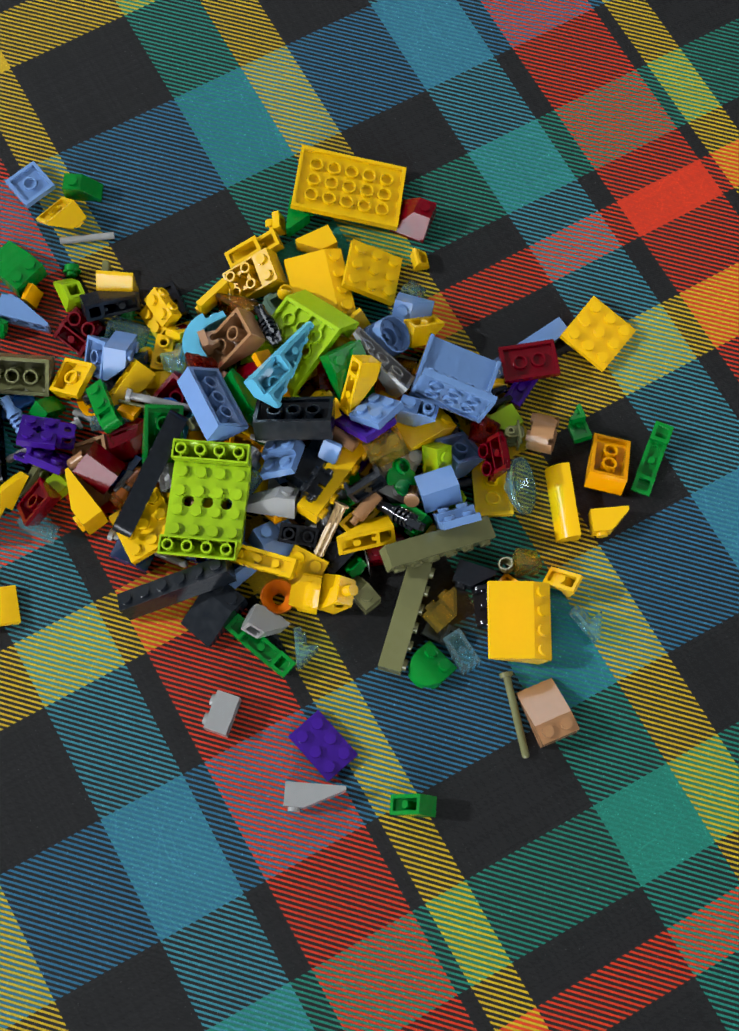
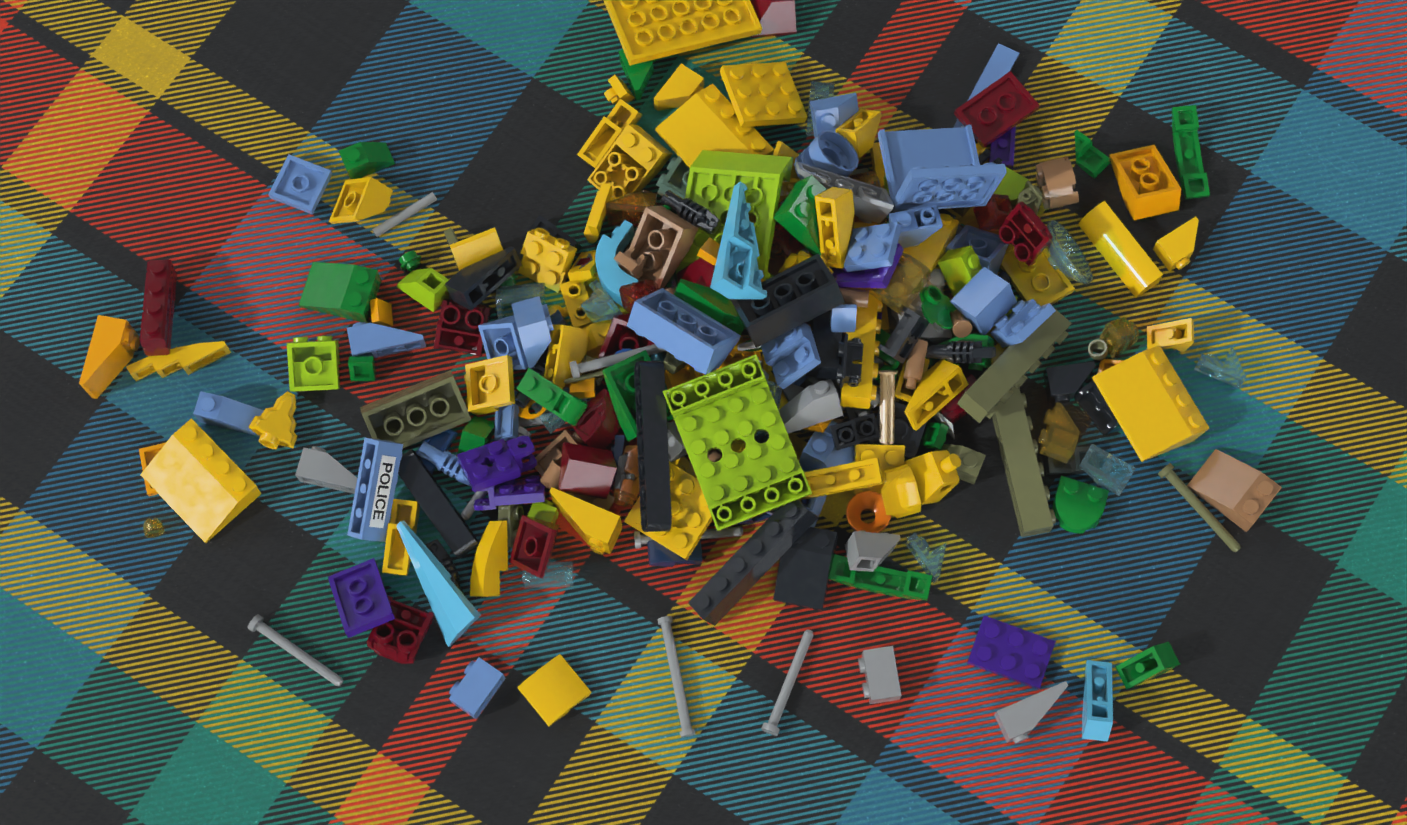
camera: 25 degrees left, 0 degrees up
(71, 410) = (507, 422): none -> medium blue tile
(98, 600) = (665, 623): none -> light grey bar
(156, 686) = (771, 726): none -> light grey bar
(284, 290) = (681, 165): yellow hinge -> none
(362, 811) = (1097, 701): none -> medium azure slope
(419, 260) = (804, 54): yellow slope -> none
(597, 333) = (1051, 41): yellow plate -> none

